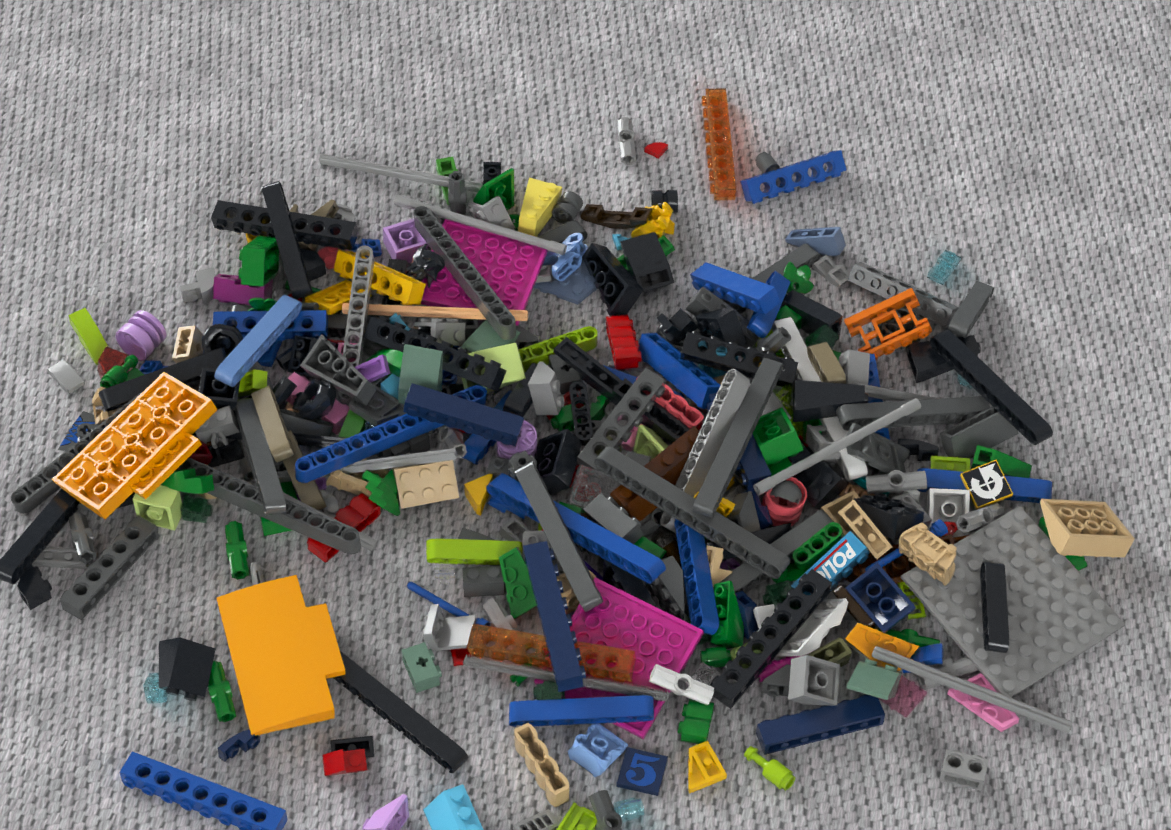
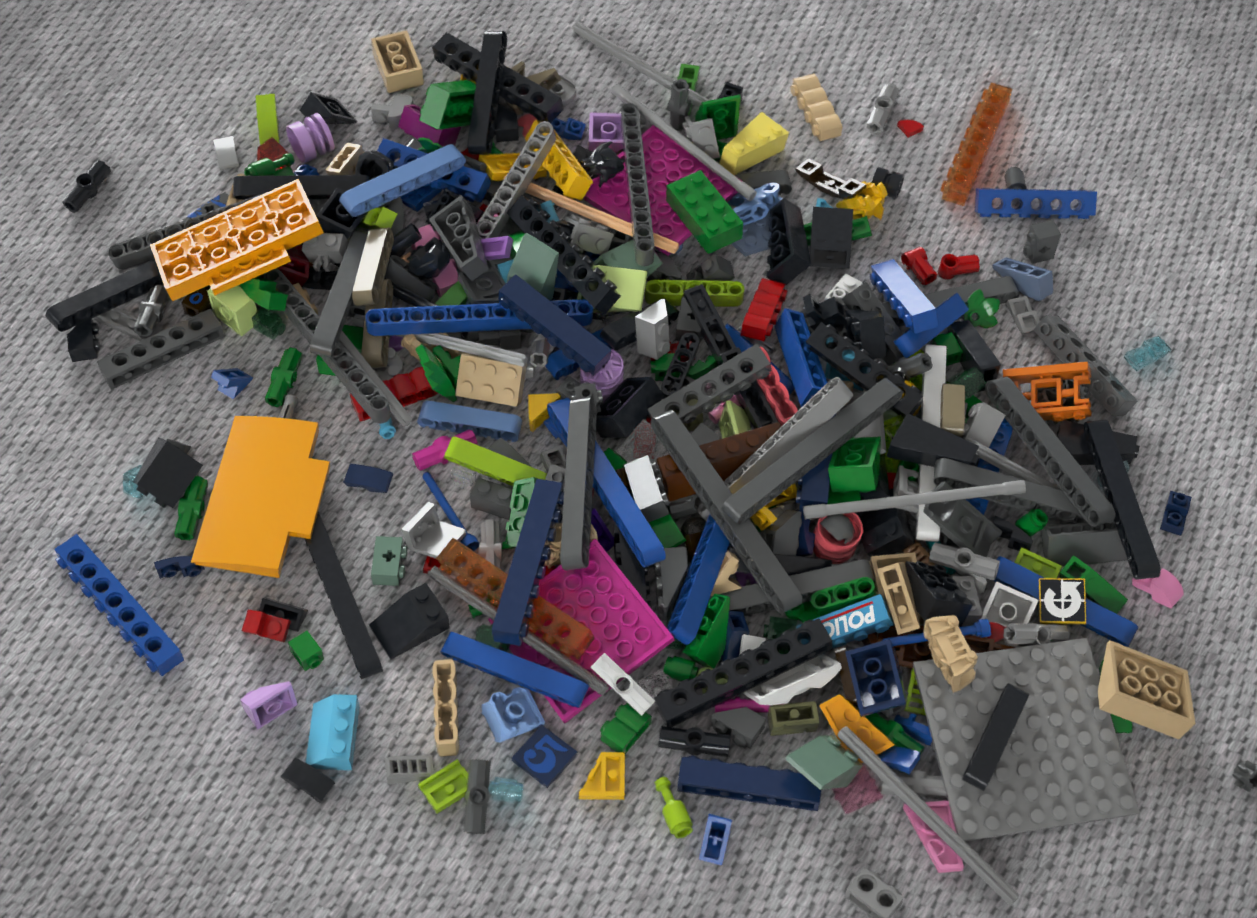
camera: 25 degrees right, 5 degrees up
(121, 516) = (196, 302): none -> dark brown brick
(131, 303) = (329, 108): none -> black slope
(180, 242) = (397, 61): none -> tan brick
(191, 572) = (231, 381): none -> blue slope
(353, 559) = (387, 429): none -> medium azure pin
(363, 605) = (368, 477): none -> dark blue slope
(393, 768) = (306, 651): none -> green brick
(412, 559) = (435, 453): none -> dark pink piece
(422, 525) = (462, 418): none -> medium blue beam
(469, 708) = (410, 621): none -> black slope
(533, 276) = (704, 211): none -> green brick
(560, 324) = (712, 269): none -> dark grey slope
(567, 207) = (785, 155): dark grey wheel -> none
(570, 158) = (816, 107): none -> tan brick
(680, 299) = (843, 288): none -> white slope
(724, 258) = (917, 261): none -> red piece
(746, 711) = (709, 742): none -> black piece
(755, 250) = (953, 265): none -> red piece
(813, 681) = (760, 737): light grey slope -> none
(817, 206) = (1042, 241): none -> dark grey brick
(818, 777) = (715, 839): none -> blue slope
(917, 370) = (1050, 452): none -> dark grey beam
(926, 629) = (914, 729): none -> blue slope
(929, 432) = (1032, 522): none -> green brick
(970, 309) = (1148, 408): dark grey beam -> none
(1031, 385) = (1175, 513): none -> dark blue slope
(1055, 447) = (1163, 589): none -> bright pink brick

